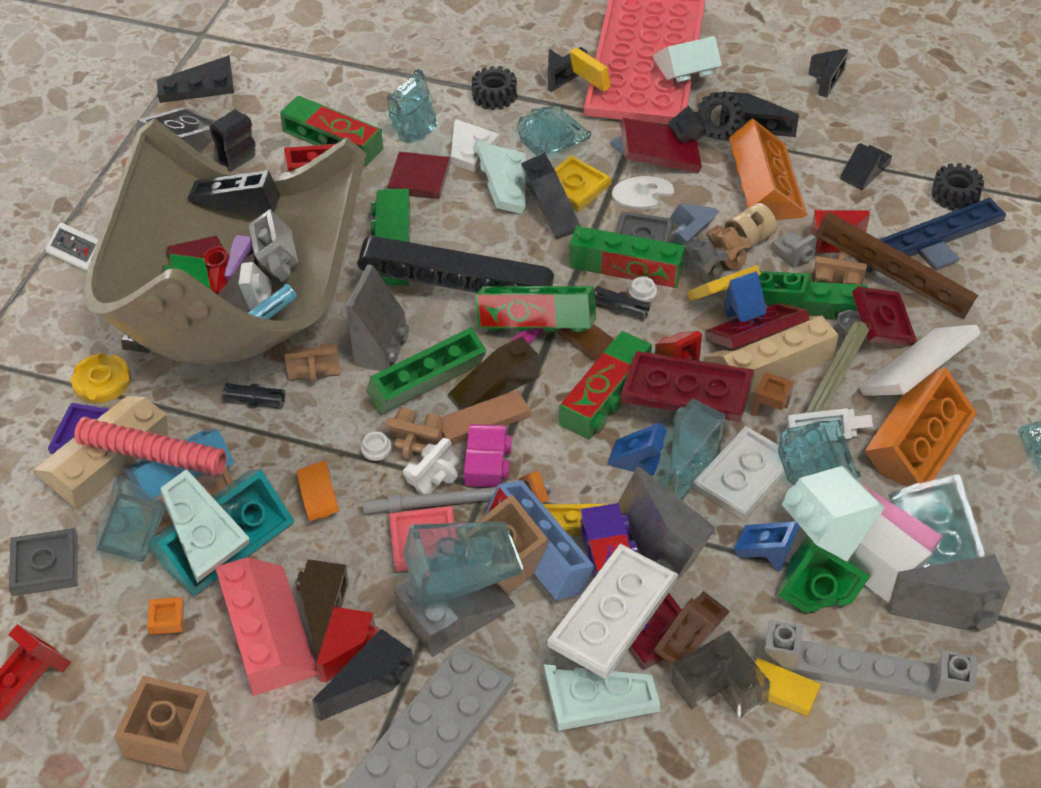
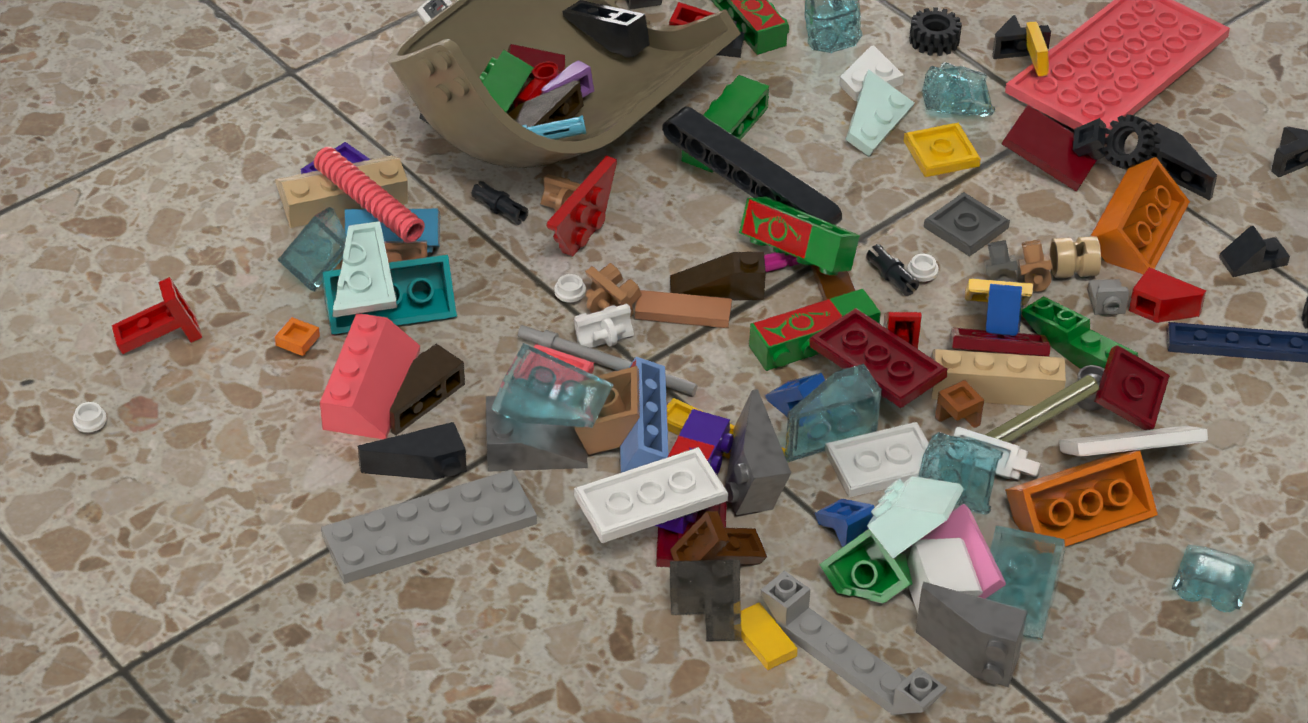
camera: 30 degrees right, 5 degrees down
(43, 562) = (235, 254): dark grey tile -> none
(100, 378) = (385, 134): yellow tile -> none
(165, 723) = (234, 409): medium nougat brick -> none
(254, 285) = (556, 103): white wing -> none
(273, 244) = (603, 81): light grey hinge -> none
(317, 491) = (490, 300): orange slope -> none
(343, 368) = (584, 209): none -> red wing
(344, 638) = (420, 413): red slope -> none
(375, 322) = (640, 182): flat silver slope -> none
(420, 174) = (799, 81): dark red tile -> none
(425, 370) = (658, 244): green brick -> none
(486, 455) = (658, 336): dark pink brick -> none
(536, 485) = (672, 379): orange tile -> none
(550, 195) = (901, 147): black slope -> none
(588, 699) = (587, 561): light aqua wing -> none
(626, 256) = (929, 231): green brick -> none
(636, 194) = (998, 183): white piece -> none
(689, 58) = (1146, 78): light aqua slope -> none
(691, 221) = (1020, 227): sand blue slope -> none
(838, 270) = (1129, 332): medium nougat hips -> none
(896, 265) = (1186, 350): reddish brown plate -> none
(939, 255) = (1255, 366): sand blue slope -> none

